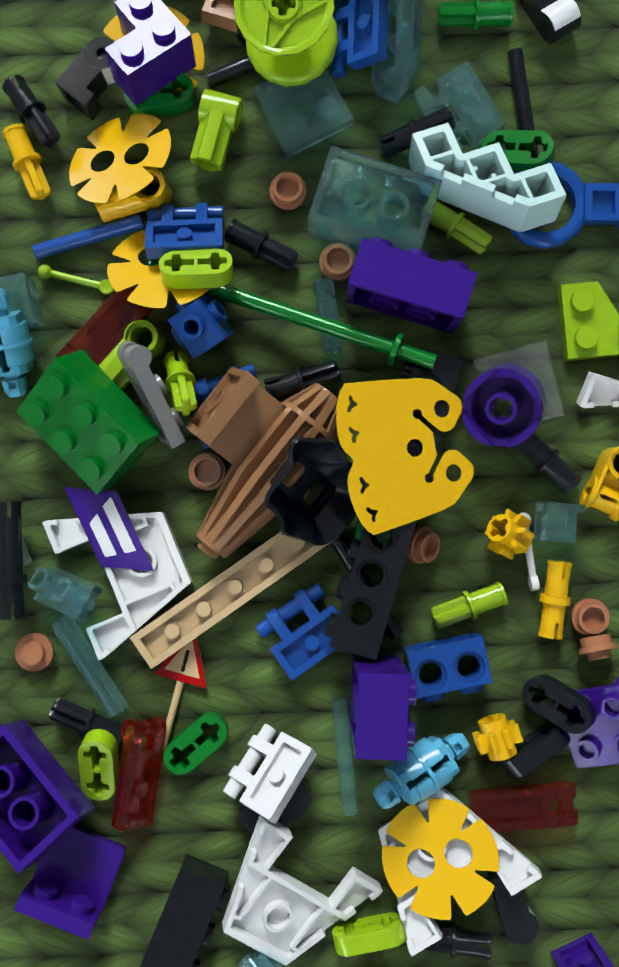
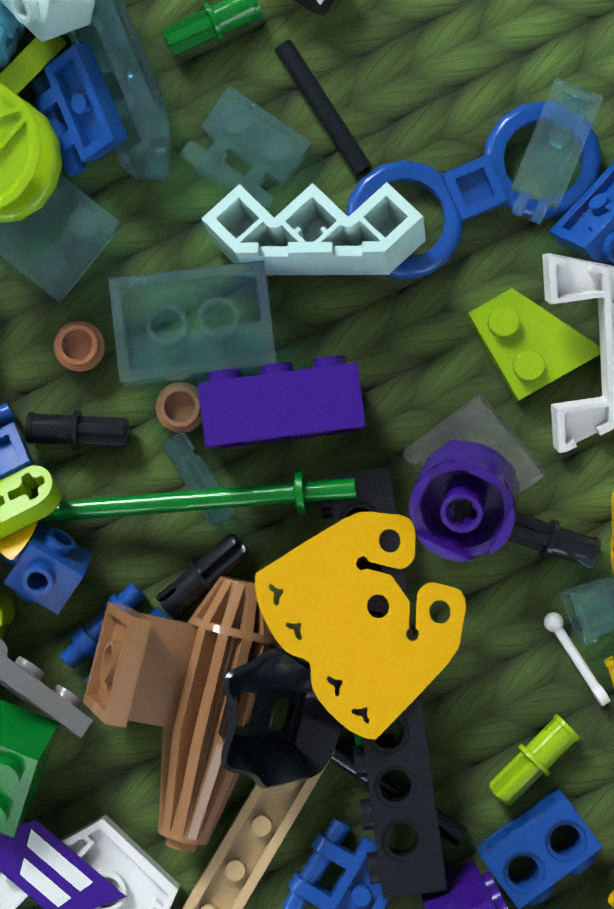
camera: 25 degrees left, 0 degrees up
(180, 382) = (54, 651): lime axle -> none
(207, 471) = (136, 744): nougat plate -> none
(400, 138) = (188, 223): black axle -> none
(423, 545) = (443, 713): nougat plate -> none
(460, 228) = (312, 299): lime axle -> none
(509, 534) = (543, 652): yellow gear -> none
(520, 145) = (338, 160): green beam -> none

